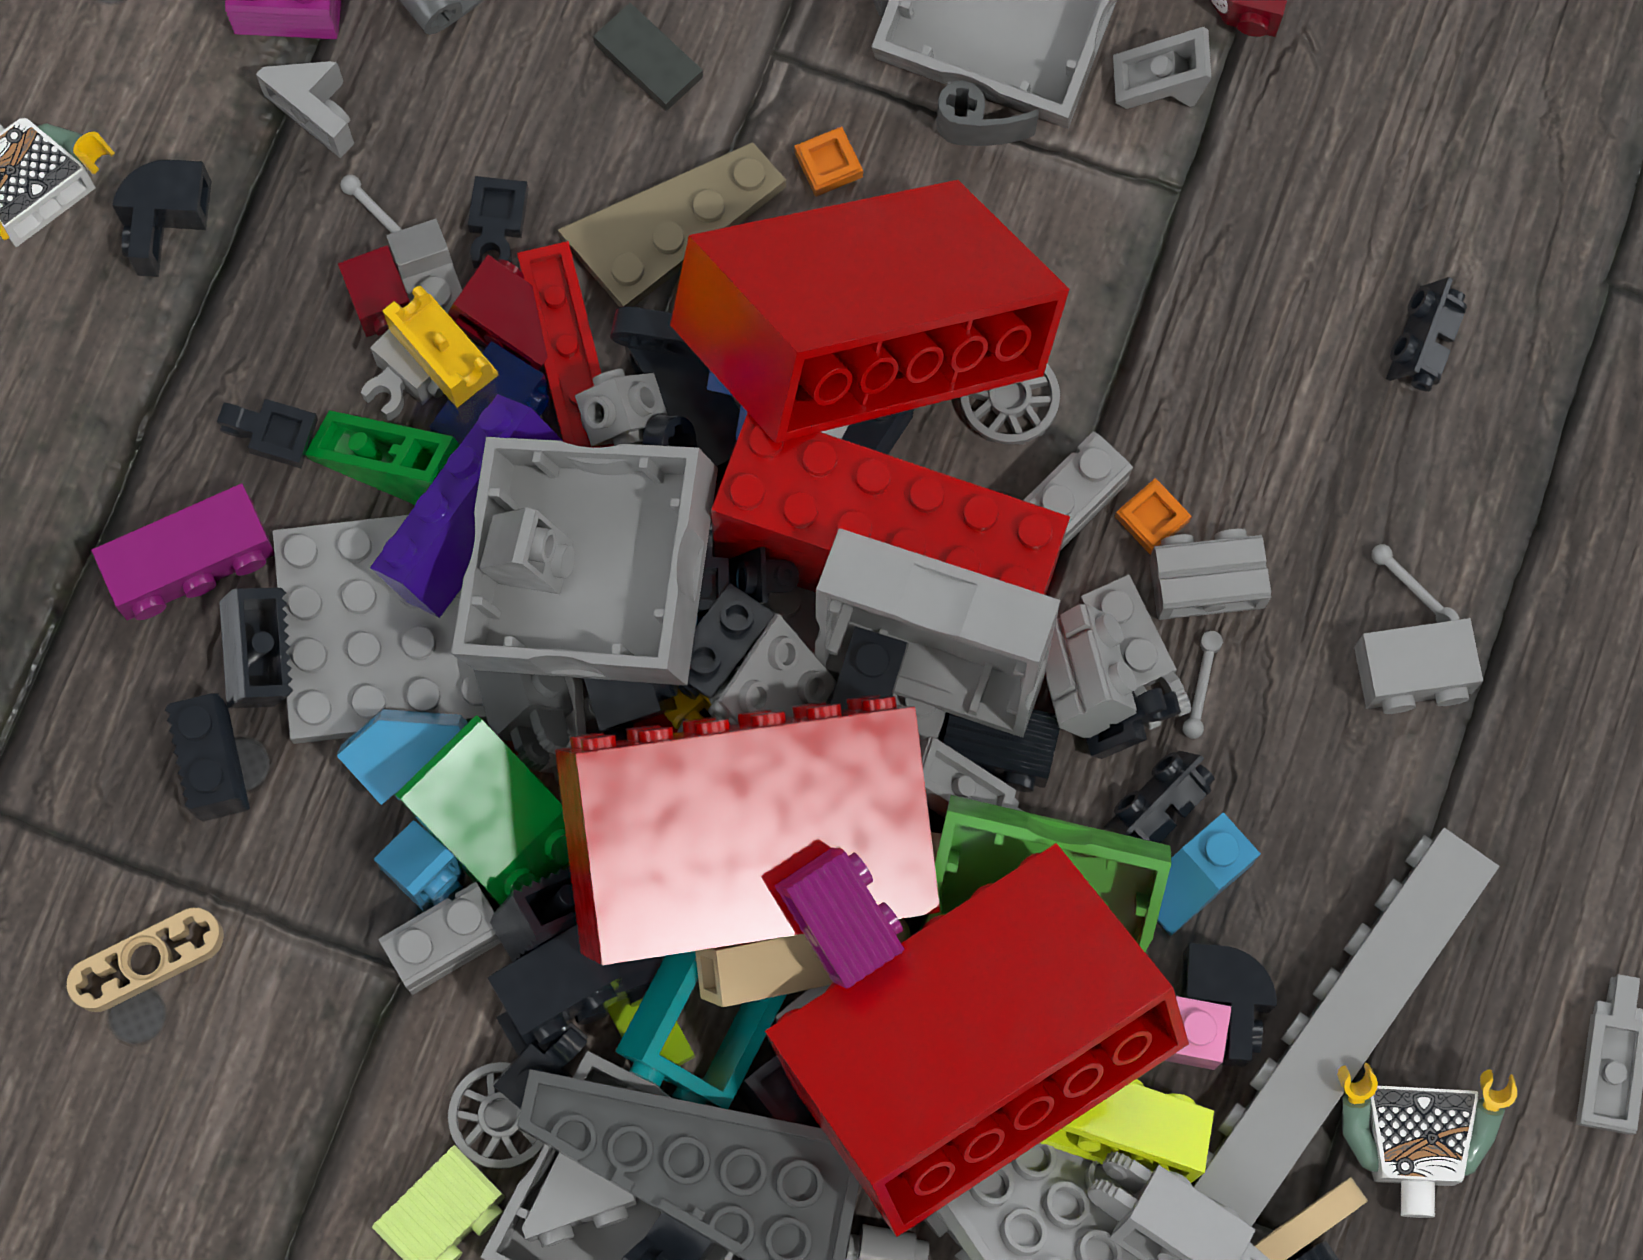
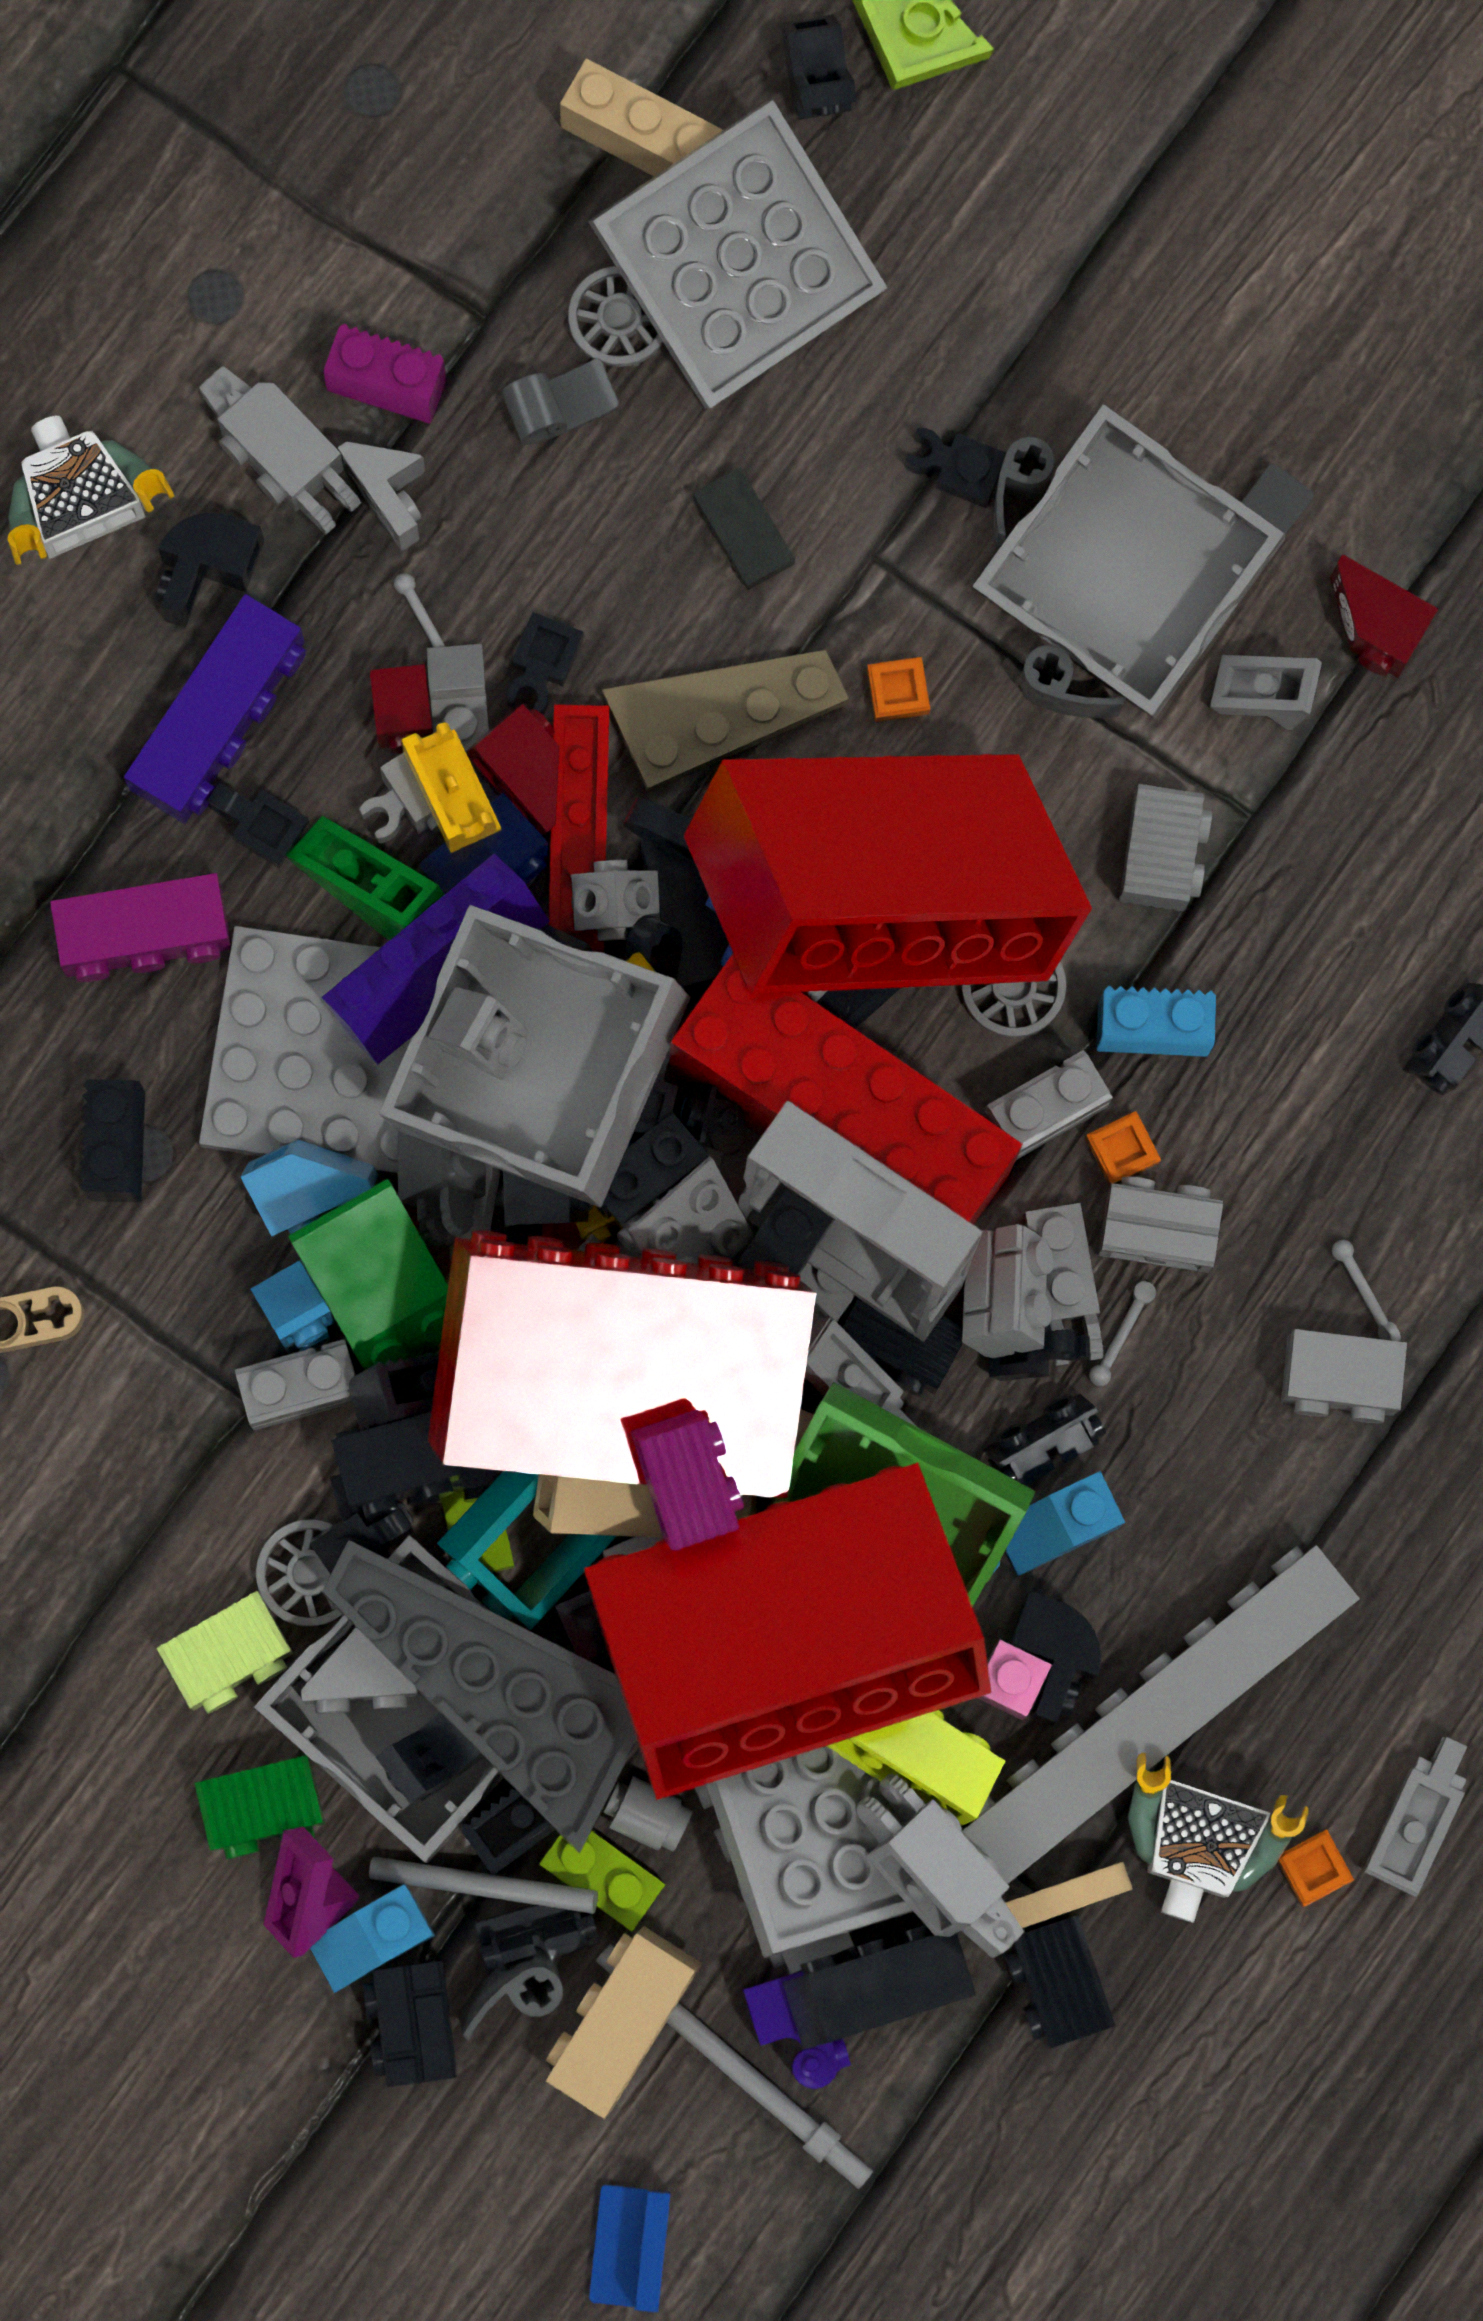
camera: 10 degrees right, 5 degrees up
(202, 89) = (278, 444): none -> light grey hinge
(204, 339) = (216, 709): none -> dark purple brick
(255, 647) = (187, 1043): black brick -> none
(1111, 236) = (1164, 848): none -> light grey brick
(1151, 391) = (1156, 1022): none -> dark azure brick
(1531, 1134) = (1314, 1868): none -> orange tile

